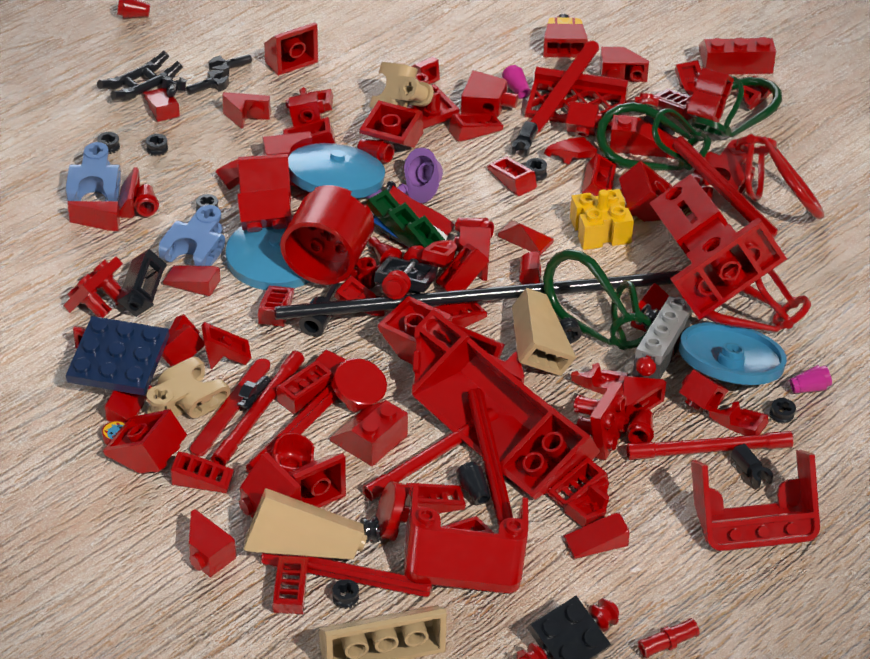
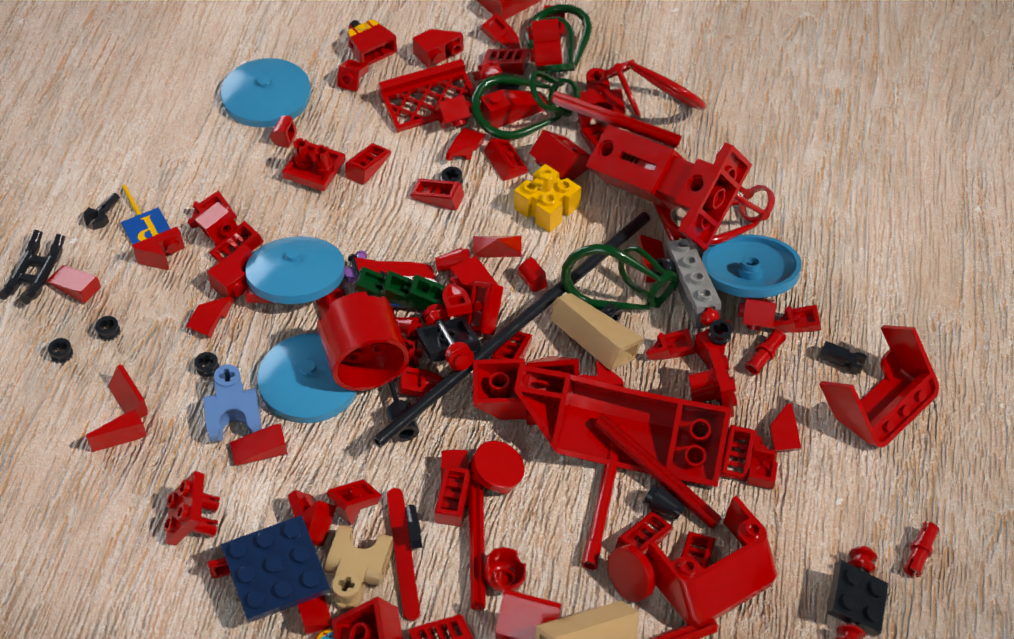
camera: 35 degrees left, 10 degrees up
(94, 175) = (80, 392): medium blue piece -> none
(132, 295) = (224, 479): black window -> none
(146, 201) = (152, 391): red cone -> none
(173, 86) = (73, 260): black bar -> none
(215, 79) = (102, 237): black bar -> none
(230, 445) = (438, 592): red piece -> none
(255, 86) = (144, 224): none -> blue piece
(264, 173) = (249, 318): red slope -> none
(265, 209) = (279, 344): red slope -> none
(274, 297) = (358, 444): red slope -> none
(292, 49) = (152, 169): red slope -> none
(322, 480) = (548, 575): red slope -> none
(370, 528) = (623, 594): black bush -> none
(373, 432) = (541, 504): red slope -> none
(379, 149) = (309, 228): red cone -> none
(394, 124) = (309, 198): red slope -> none
(402, 86) = (291, 162): tan piece -> none
(422, 174) = (372, 235): medium lavender piece -> none
(443, 34) = (265, 91): none -> dark azure dish
(486, 95) = (354, 129): red torso -> none
(516, 81) = (366, 103): dark pink cone -> none
(524, 52) = (350, 74): none -> red bracket
(525, 138) = (419, 153): black bar -> none
(565, 84) = (414, 90): red piece -> none
(599, 536) = (793, 490): red slope -> none
(636, 489) = (784, 431): none -> red slope
(640, 382) = (717, 338): none -> black bush
(641, 427) = (742, 373): red cone -> none
(682, 425) = (765, 351): none -> red pin
(769, 440) = (762, 386): red piece -> none
(787, 415) = (814, 297): black bush -> none
(811, 380) = (819, 254): dark pink cone -> none

